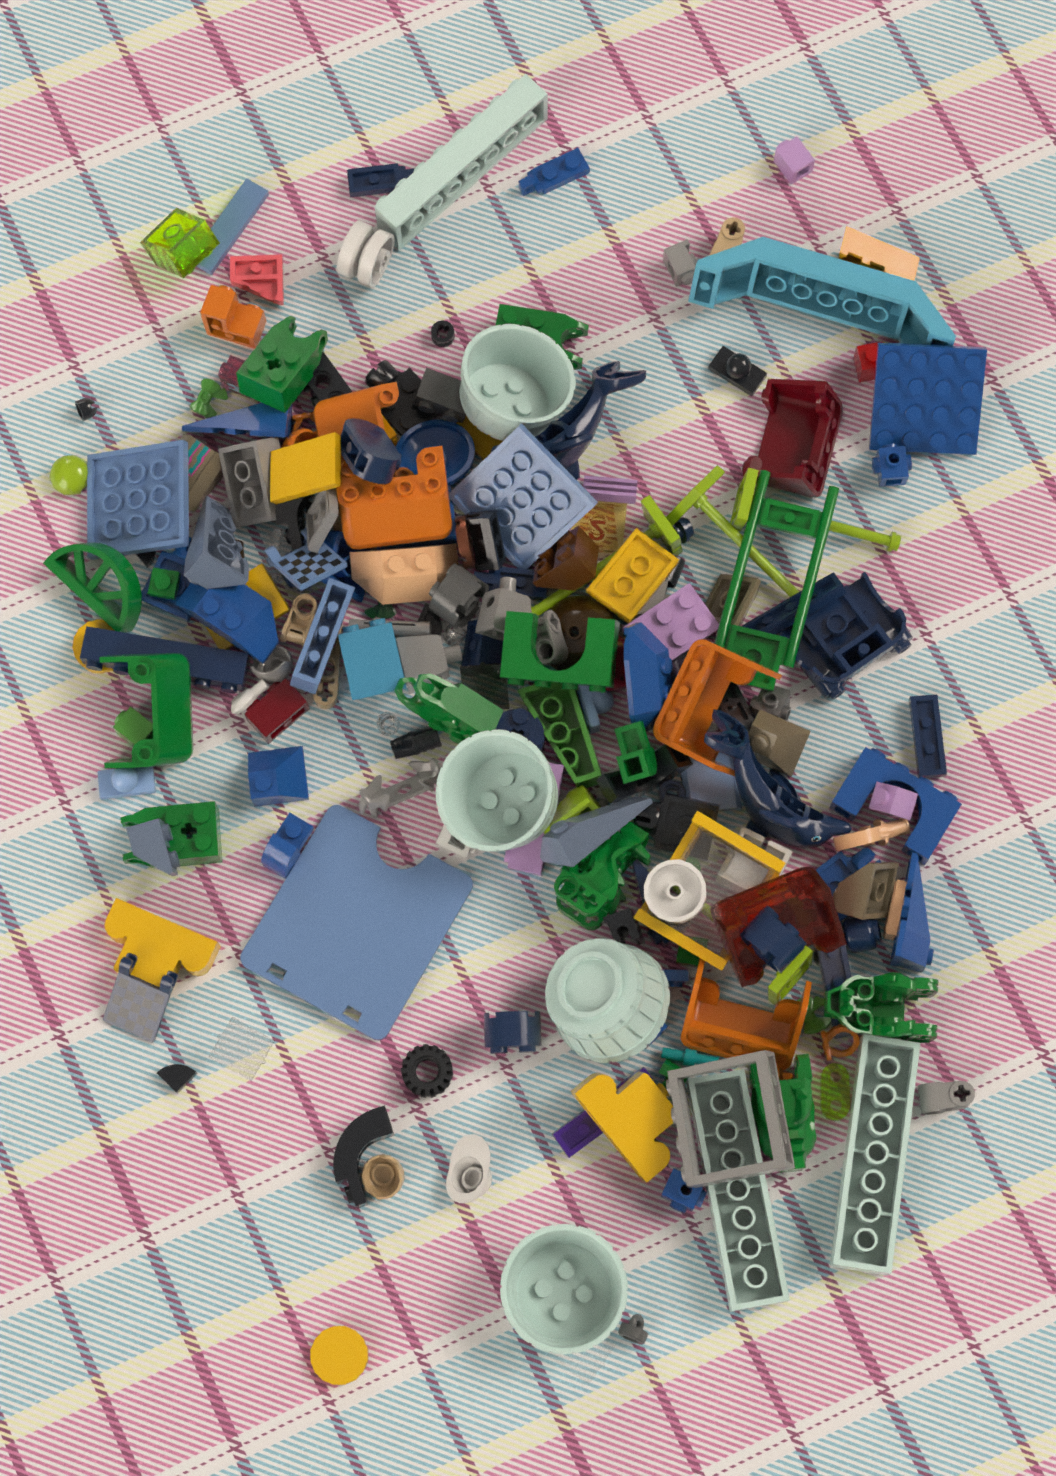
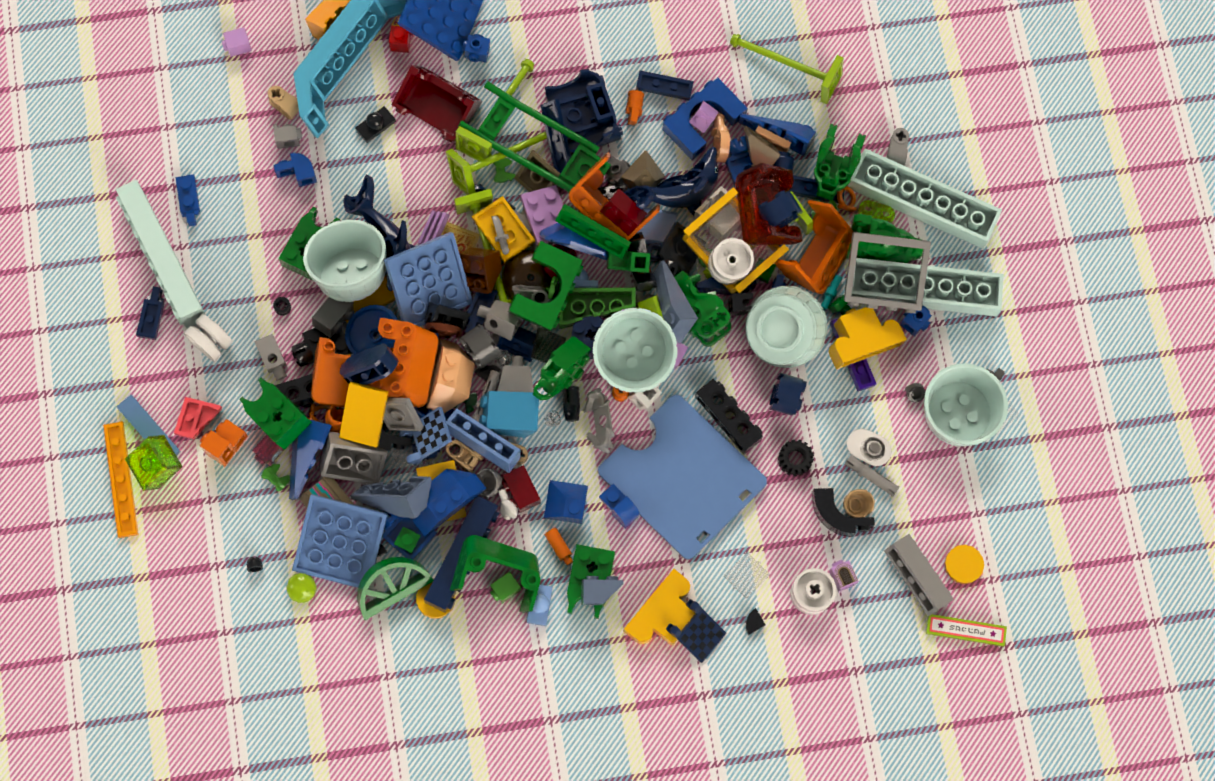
camera: 80 degrees left, 0 degrees up
(144, 219) = (120, 480): none -> light orange tile
(213, 782) = (559, 546): none -> orange cylinder
(221, 1139) = (820, 582): none -> white wheel
(243, 1382) = (966, 630): none -> tile
(273, 1182) = (843, 575): none -> brick
(301, 1291) = (918, 575): none -> light grey brick
(366, 339) = (269, 349): none -> light grey torso
(435, 1176) = (871, 475): none -> light grey pin
(478, 921) = (705, 397): none -> black brick
(563, 663) = (554, 288): none -> bright green piece
(575, 1214) = (915, 392): none -> dark grey tile
(617, 573) = (501, 237): none -> light grey piece
(641, 294) = (298, 165): none -> blue brick
(657, 688) = (592, 231): none -> green fence
(697, 716) = (623, 212): none -> dark red brick
(718, 556) = (502, 176): none -> bright green piece
(881, 703) = (634, 106): none -> orange hinge
(1015, 966) = (830, 78): none -> lime tile

